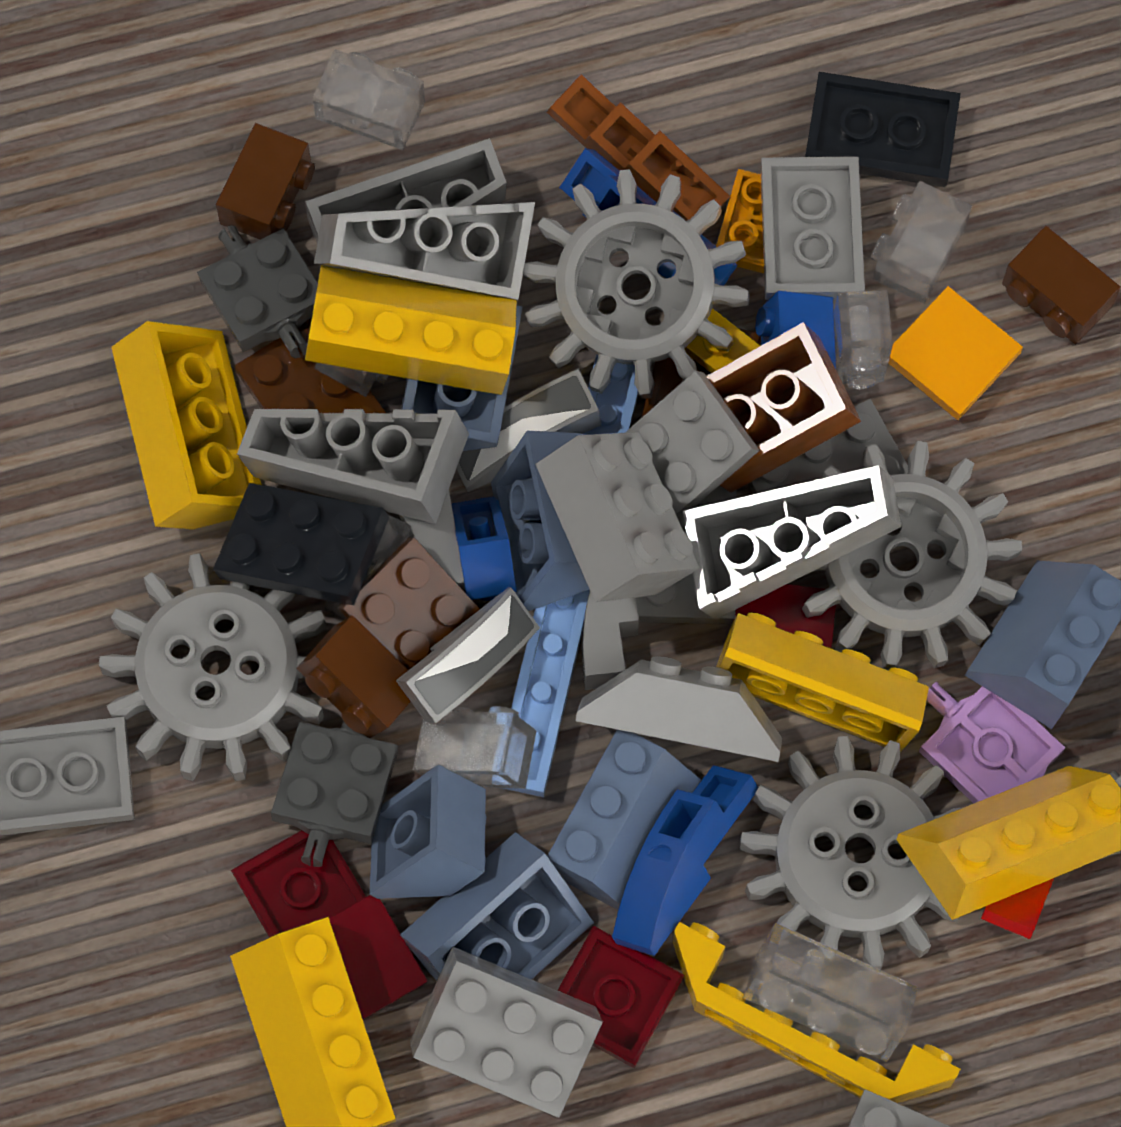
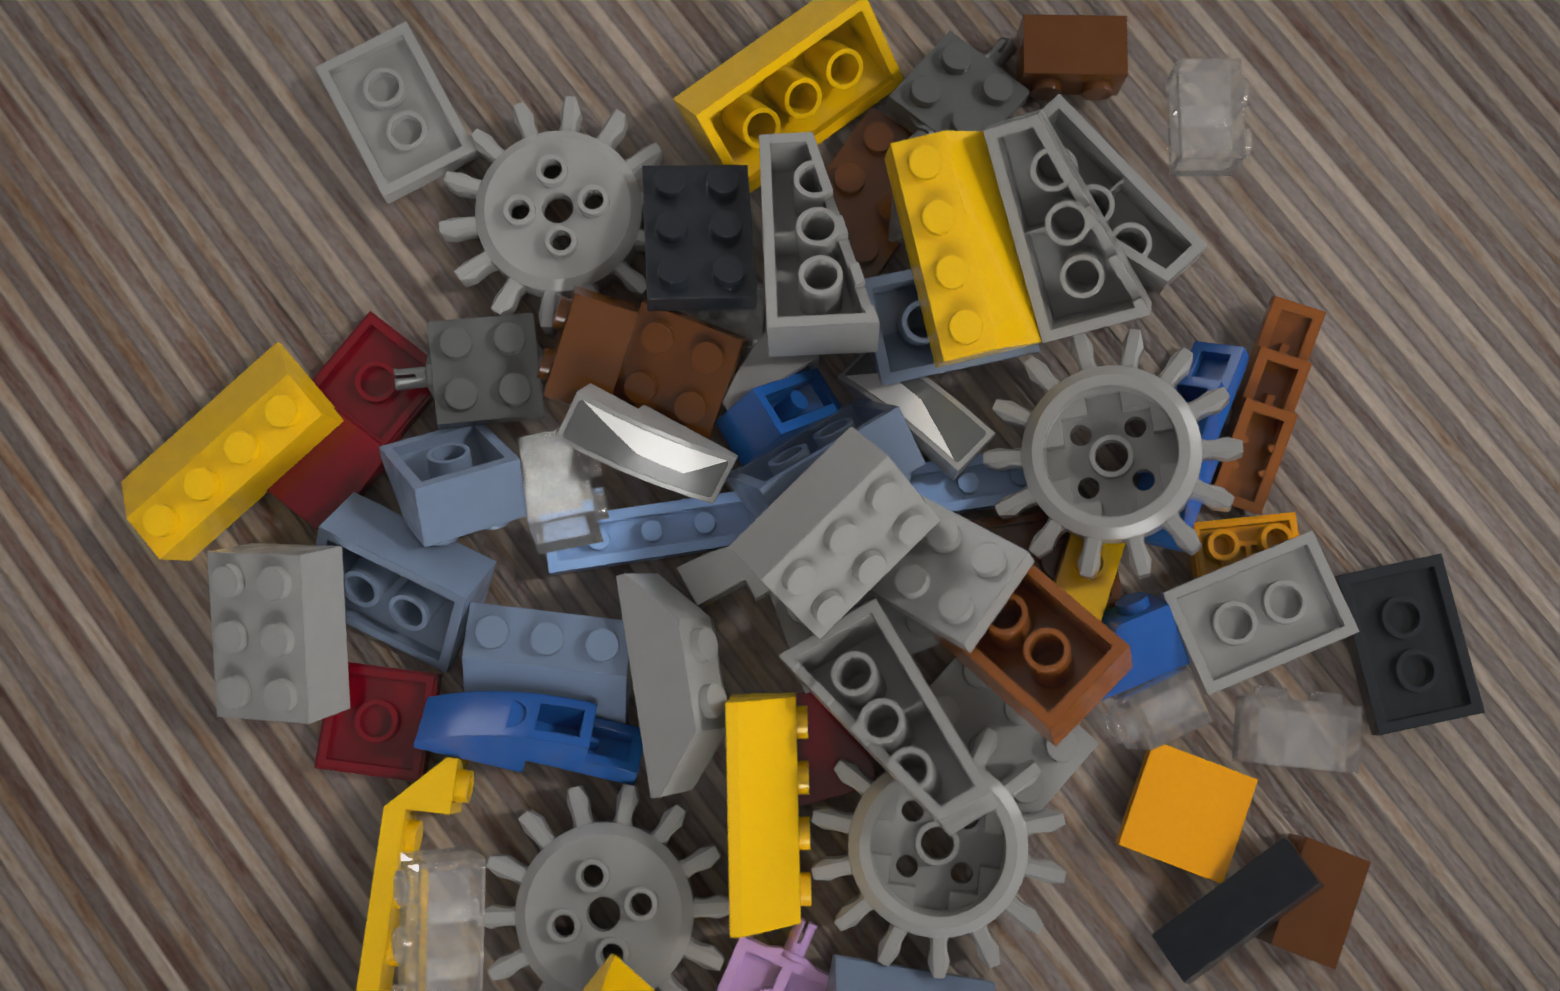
camera: 70 degrees right, 10 degrees up
(1047, 343) = (1237, 910): none -> black tile

